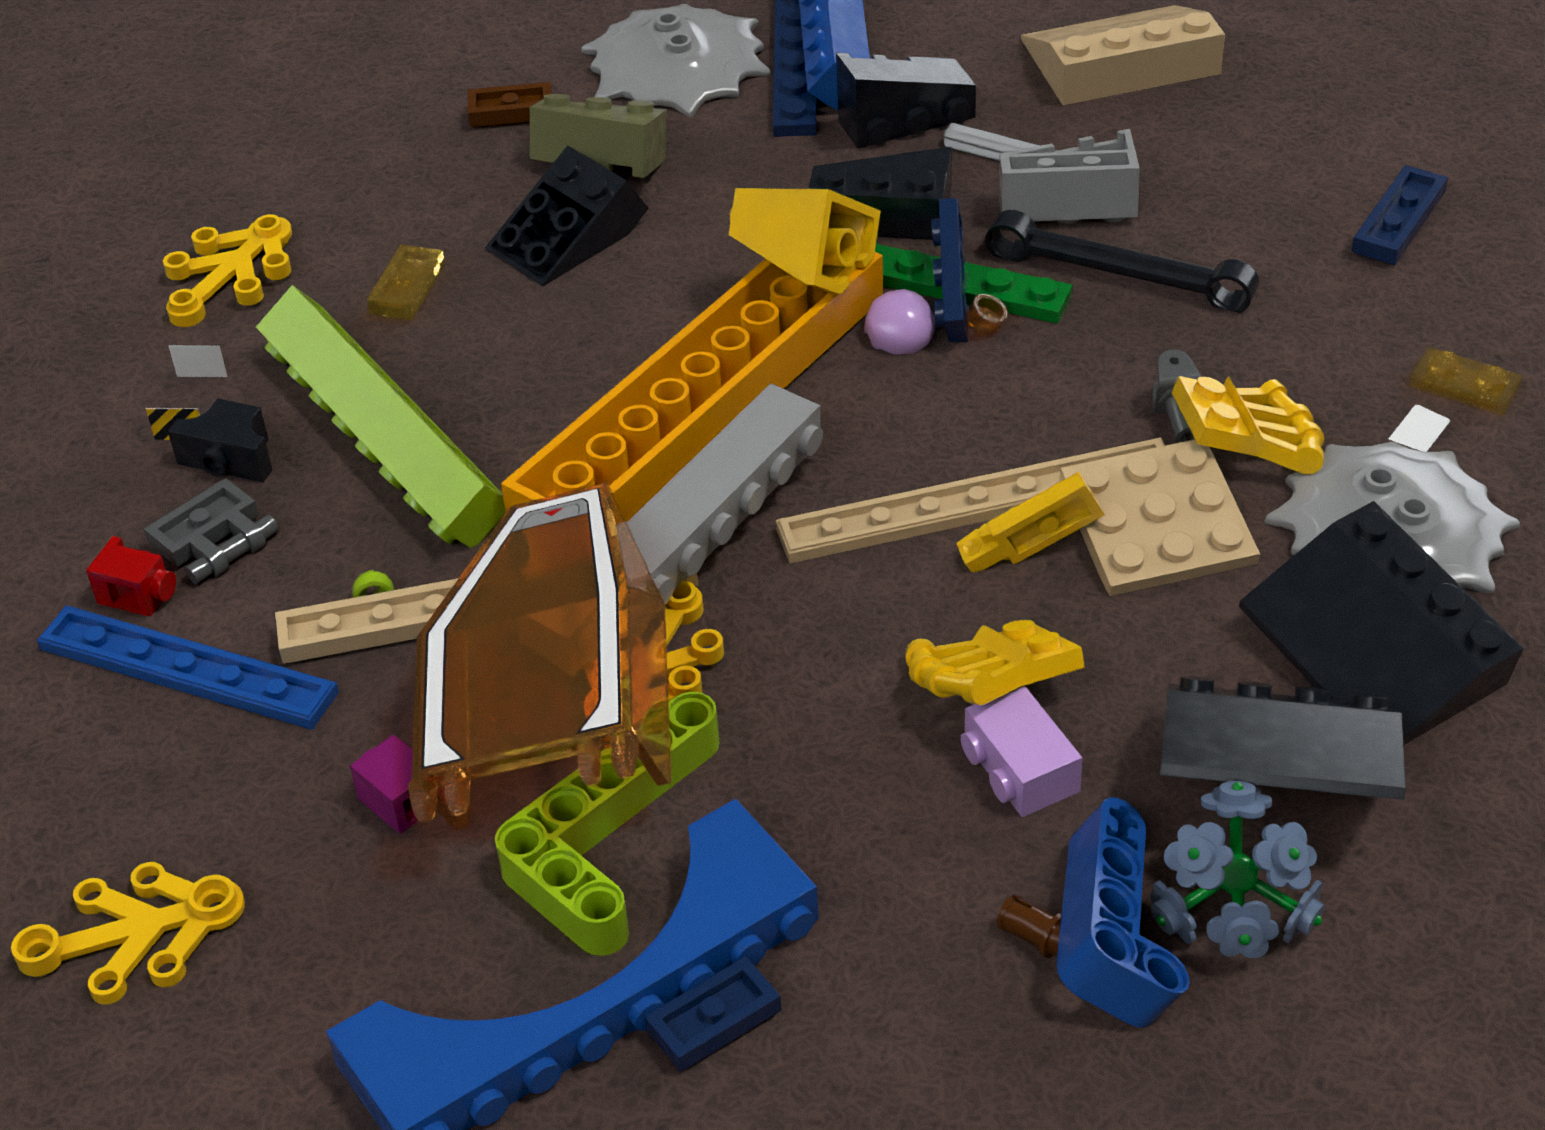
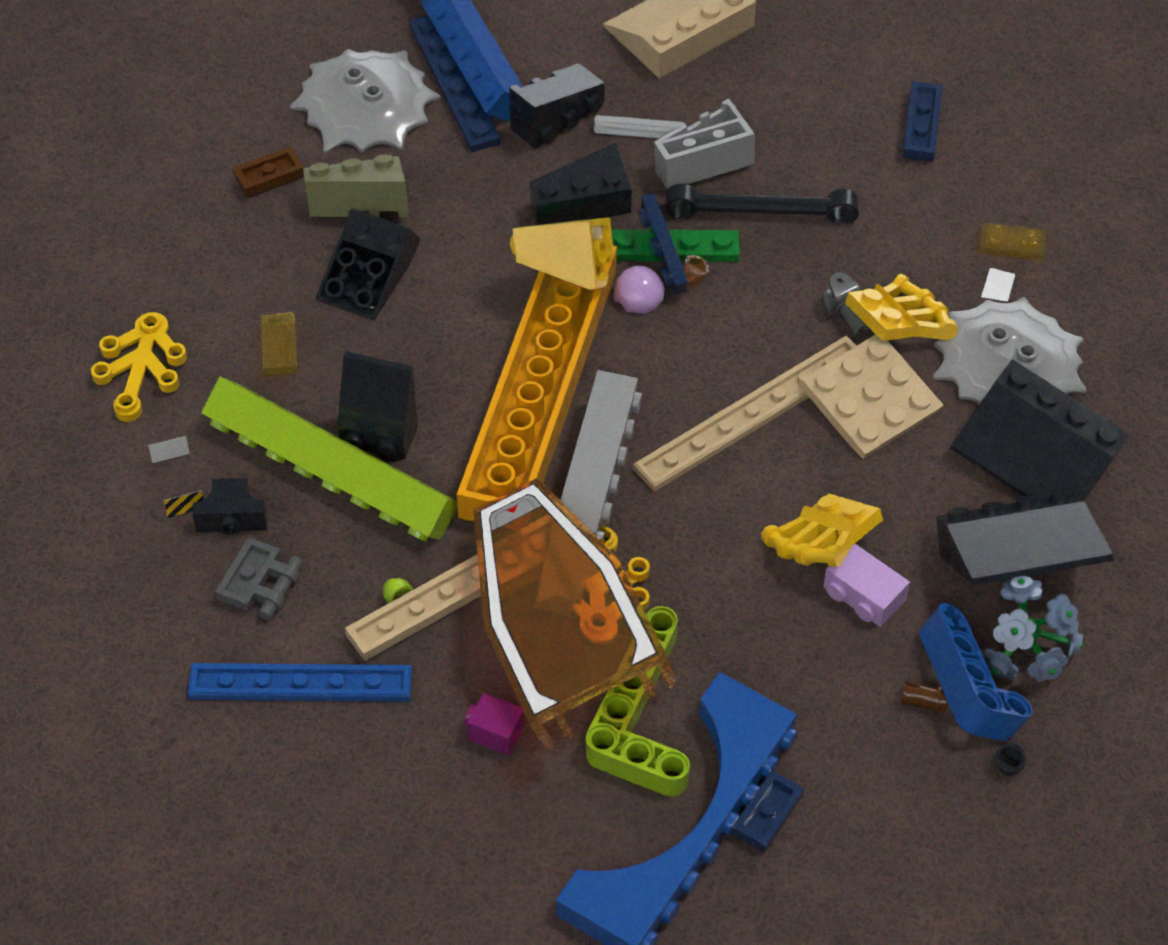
camera: 25 degrees left, 10 degrees up
(130, 578) = (229, 631): red brick -> none
(136, 930) = (382, 868): yellow plant -> none
(464, 361) = (377, 405): none -> black slope
(1032, 525) = (801, 427): yellow hinge -> none
(1135, 1045) = (1013, 753): none -> black hinge

